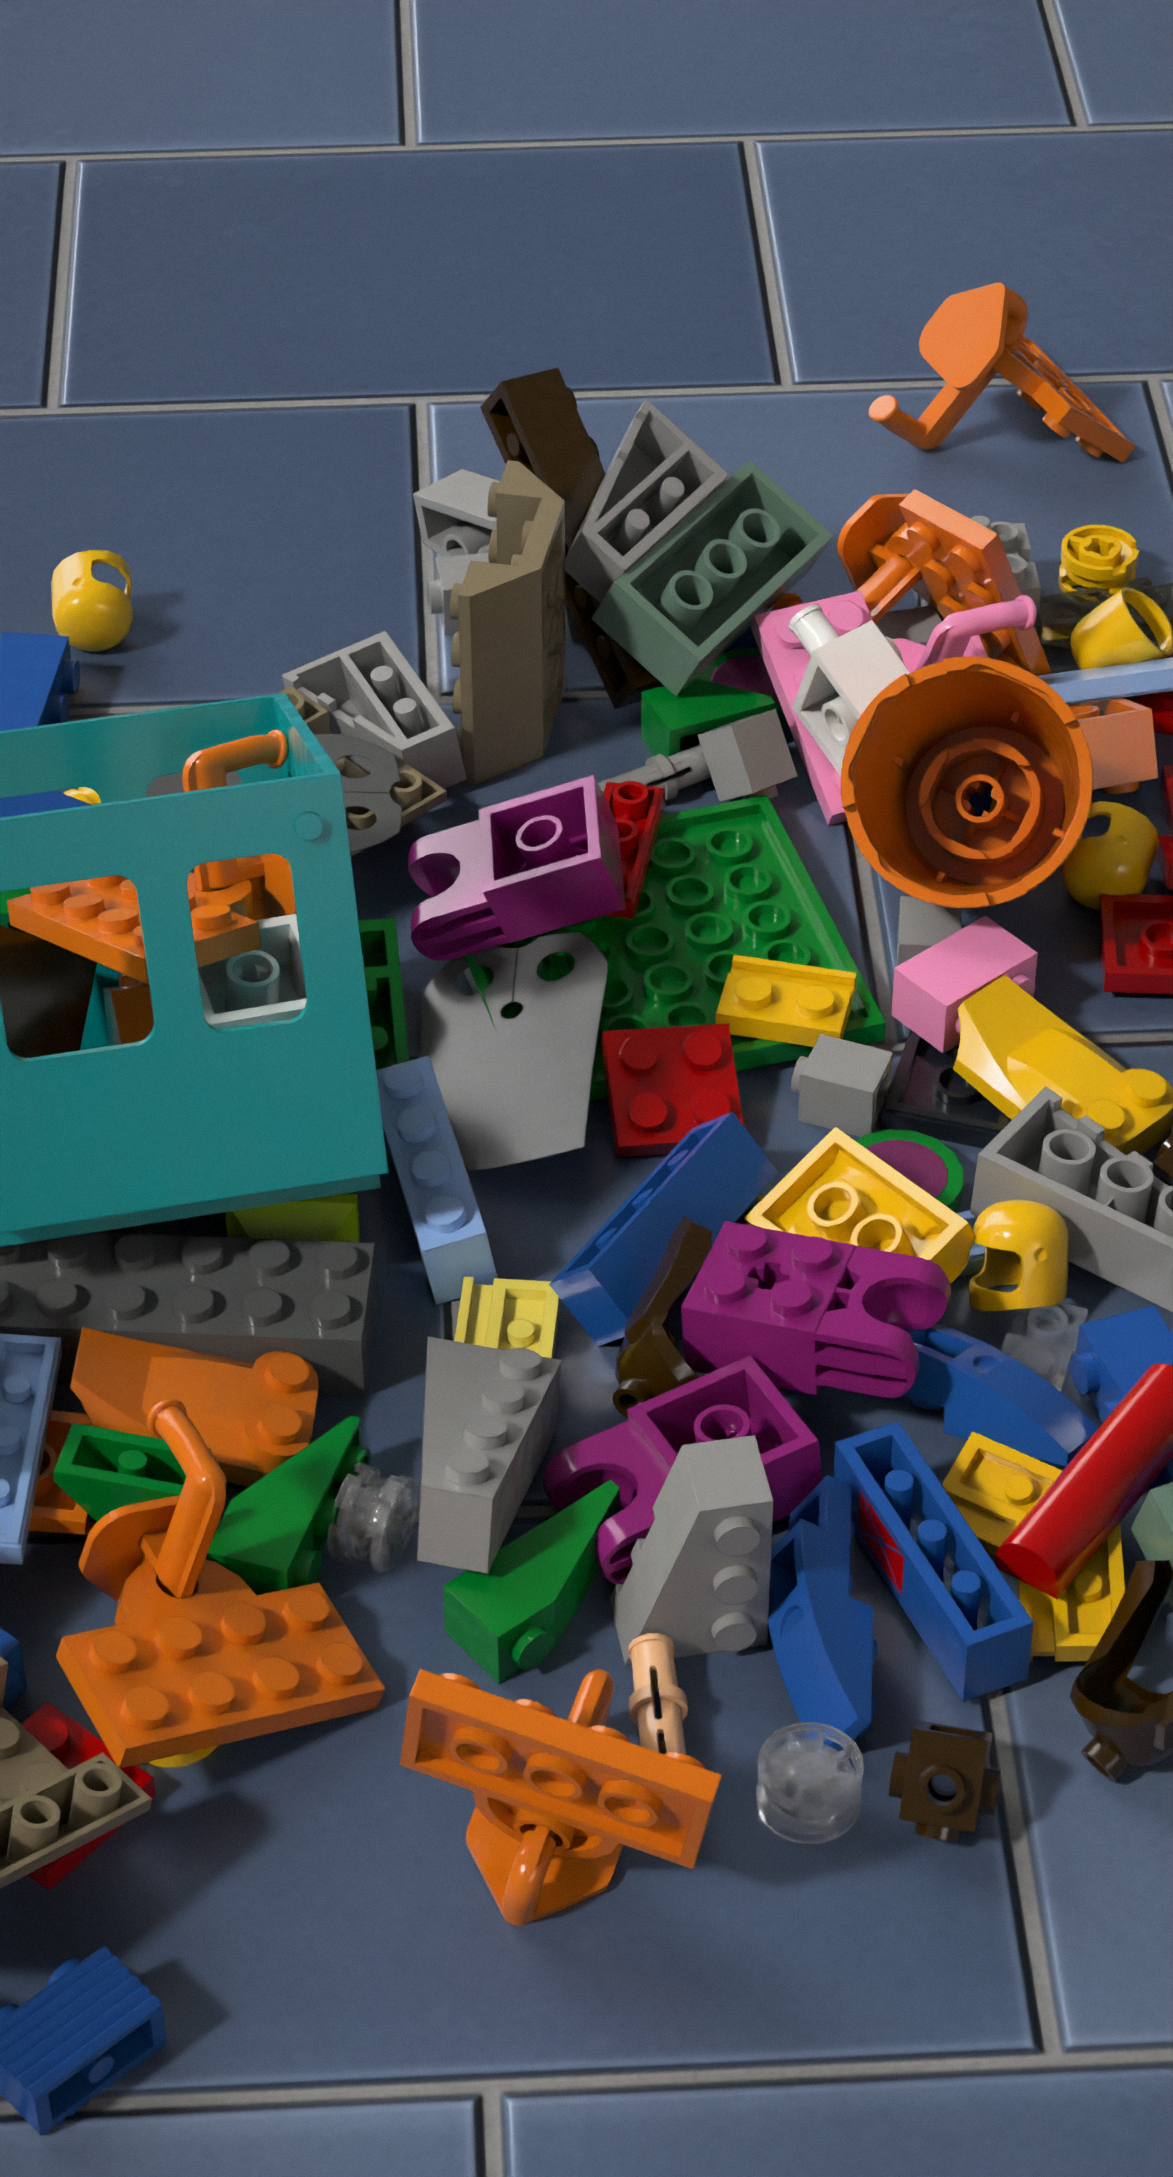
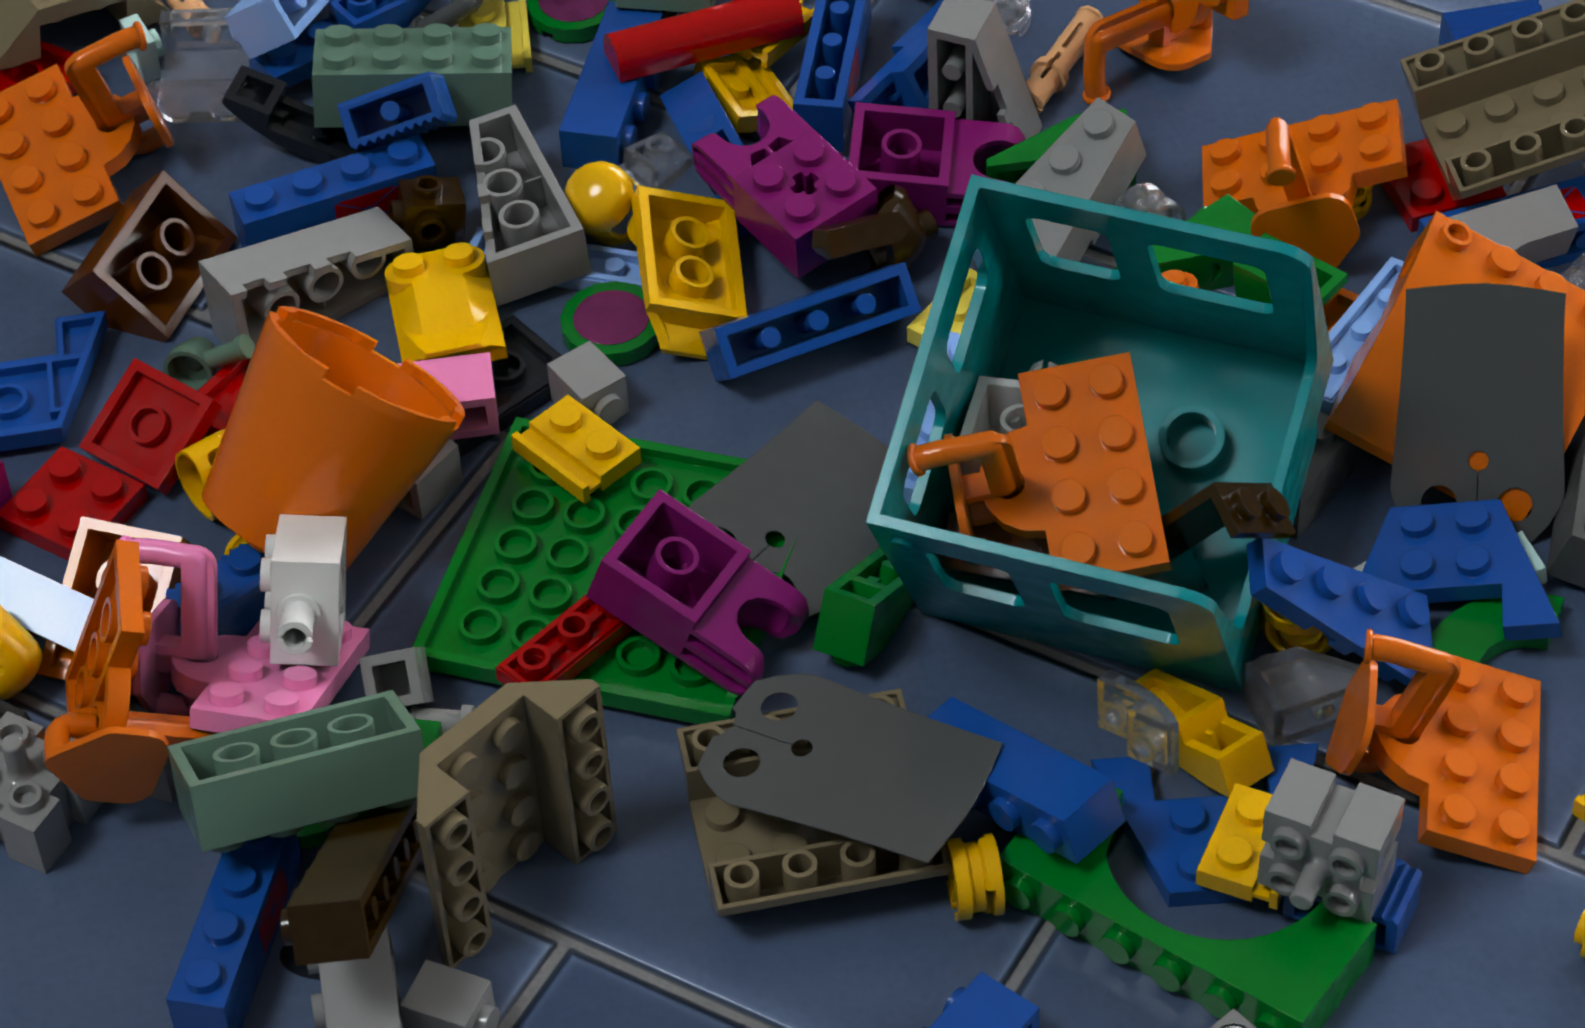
camera: 145 degrees left, 5 degrees up
(384, 702) = (654, 878): light grey wedge -> none
(643, 496) = (325, 798): light grey wedge -> none
(667, 1084) = (711, 429): red plate -> none

